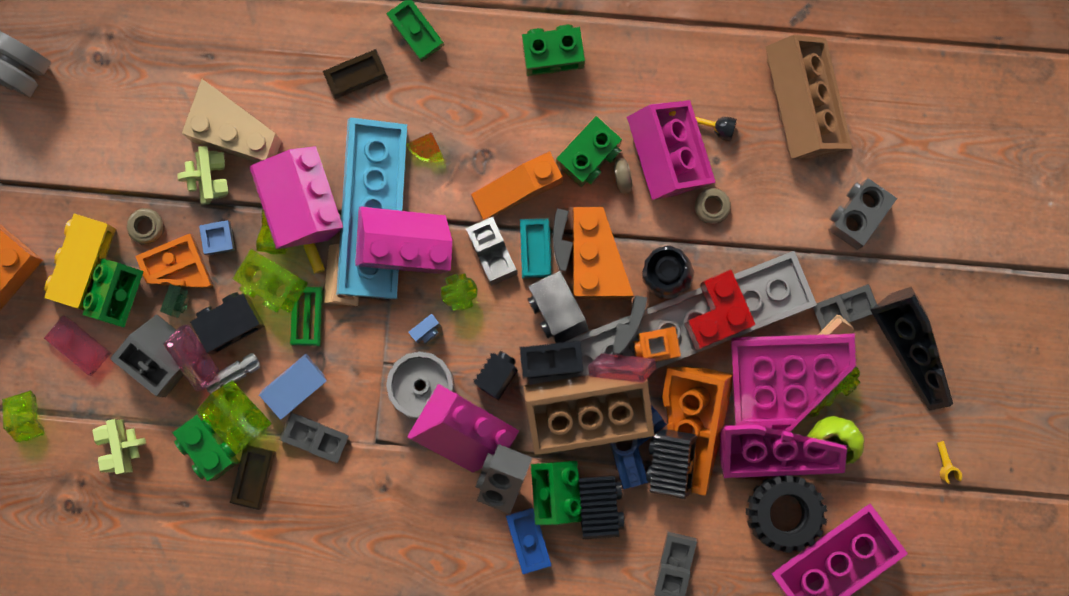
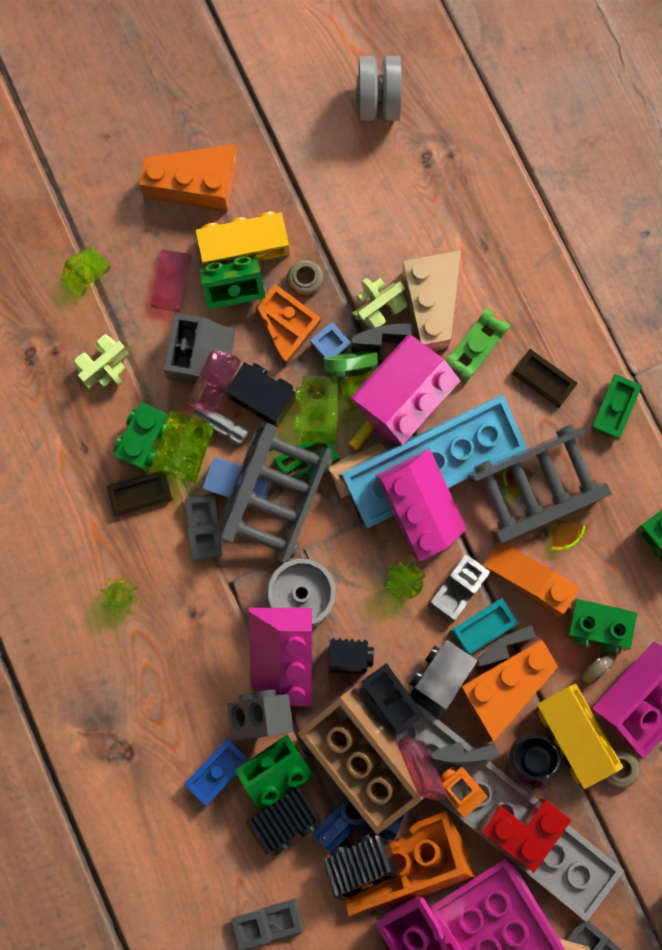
camera: 60 degrees right, 5 degrees down
(175, 301) = (255, 339): clear green plate -> none
(235, 201) = (371, 339): none -> dark grey slope
(242, 235) = (359, 361): none -> bright green plate
(293, 114) = (477, 345): none -> bright green plate
(309, 388) = (244, 497): none -> dark grey fence
(327, 549) = (111, 594): none -> clear neon green gear
(425, 330) = (354, 570): medium blue plate -> none
(470, 122) = (562, 503): none -> dark grey fence
(499, 135) = (567, 535): none -> tile
(668, 223) = (579, 736): none -> yellow brick

